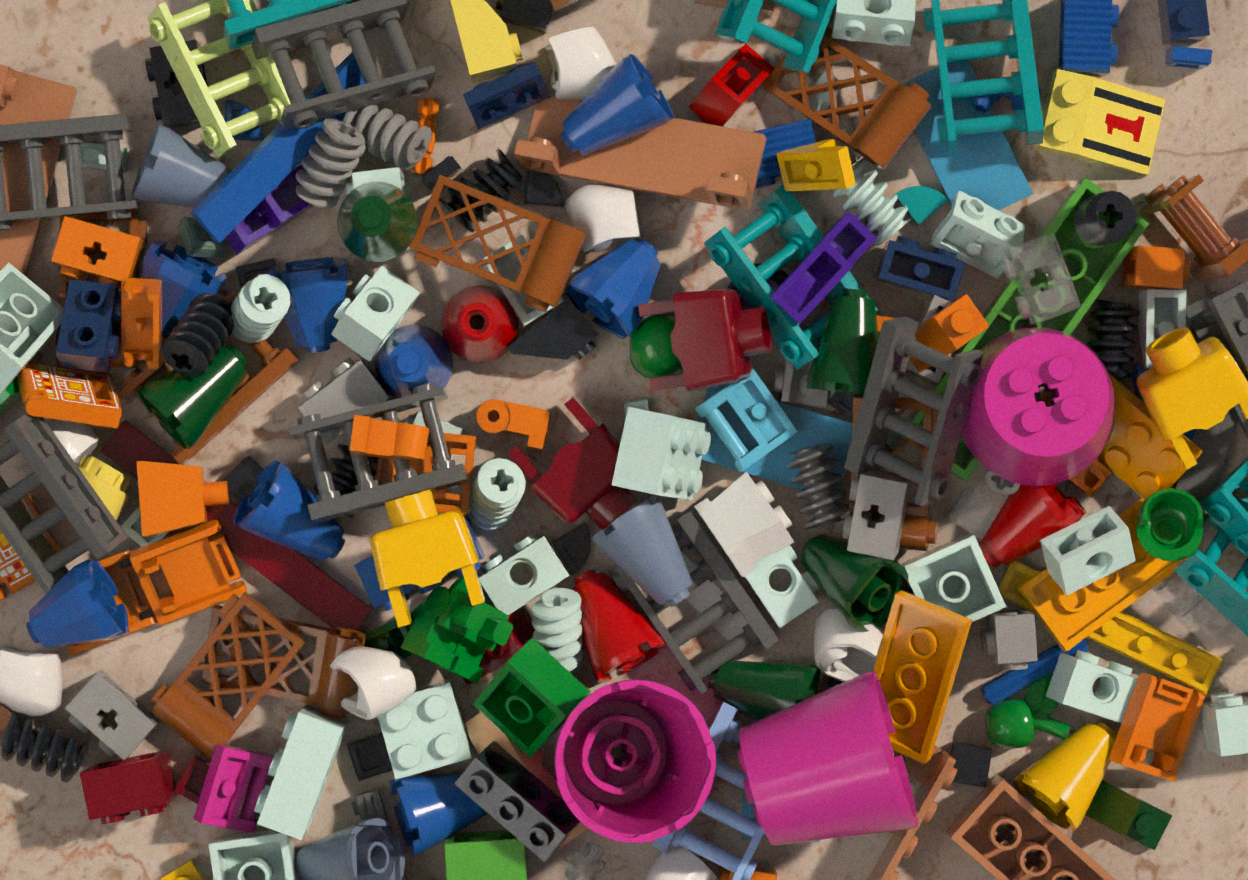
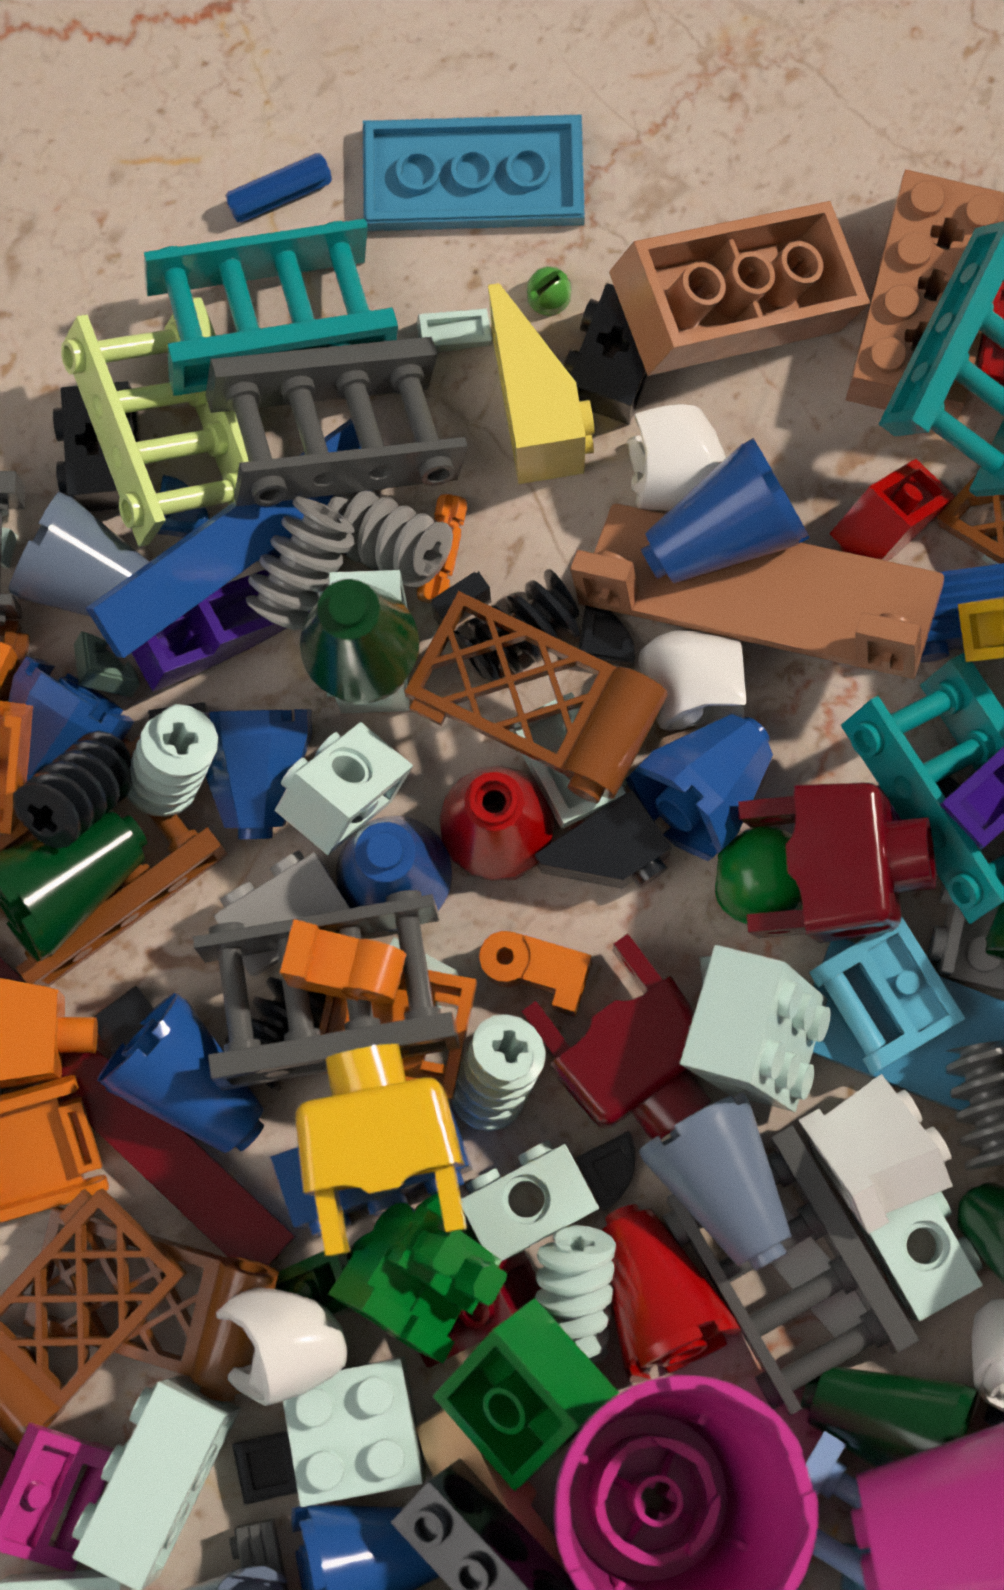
camera: 15 degrees right, 10 degrees down
(506, 95) = (565, 493): dark blue bracket -> none

